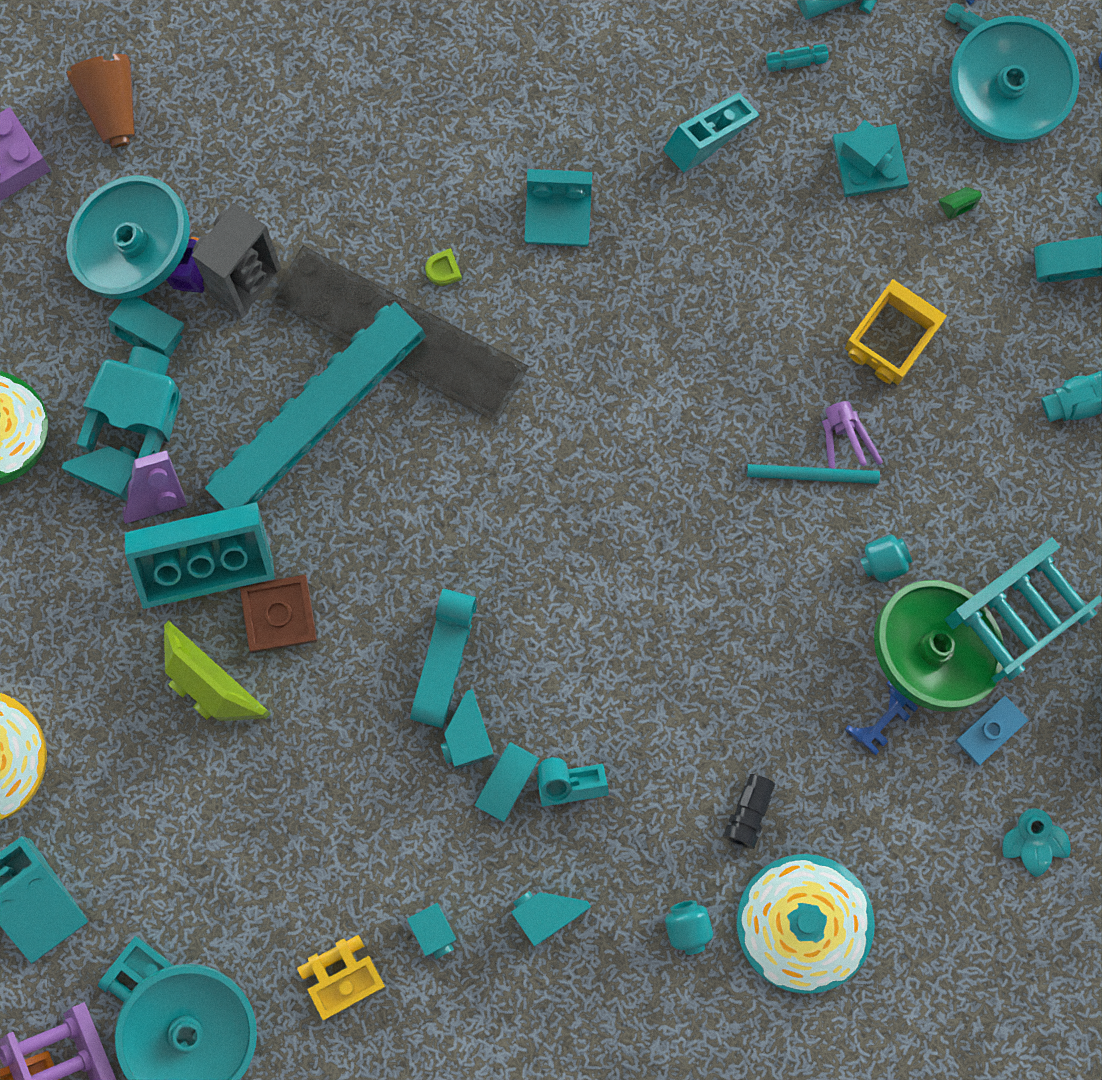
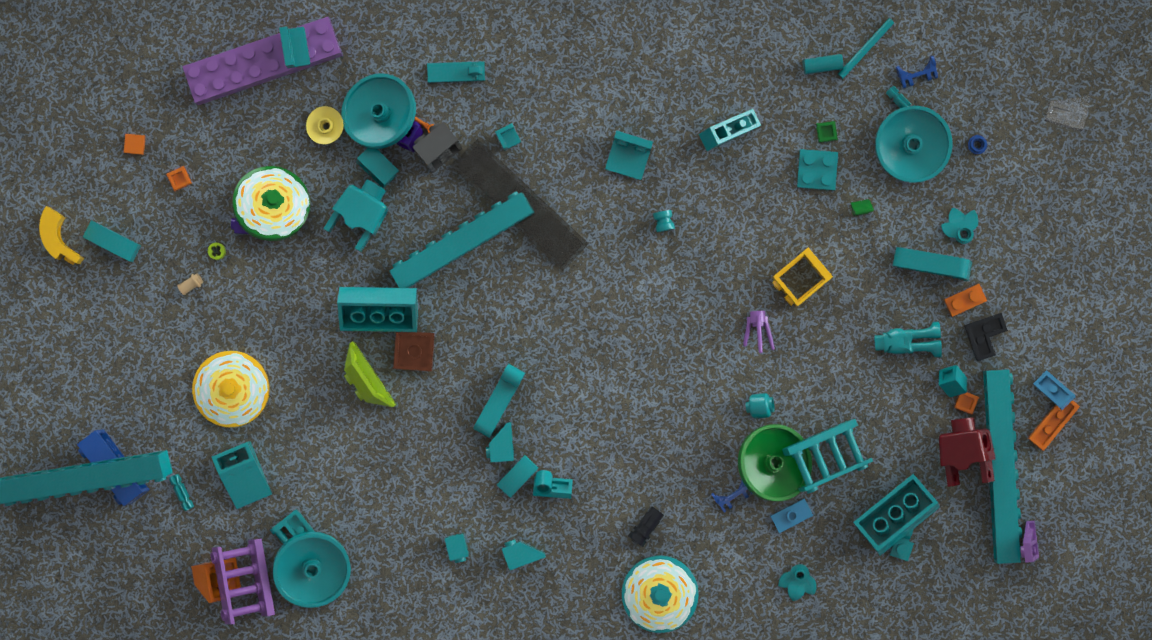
camera: 15 degrees right, 10 degrees up
(32, 276) = (316, 122): none -> light yellow dish
(104, 469) = (337, 245): teal slope -> none
(106, 96) = (385, 23): dark orange cone -> none
(153, 488) = (360, 263): medium lavender wing -> none
(242, 150) = (456, 72): none -> teal hinge
(345, 987) = (401, 565): yellow plate -> none
(351, 228) = (508, 136): none -> teal panel
(442, 268) = (554, 172): lime tile -> none
(643, 299) = (663, 220): none -> teal wheel
(689, 927) = (596, 580): teal head -> none
(797, 57) = (792, 96): teal axle -> none
(813, 474) = (733, 346): teal bar -> none
(867, 99) = (826, 131): none -> green tile
(868, 149) = (816, 167): teal brick -> none

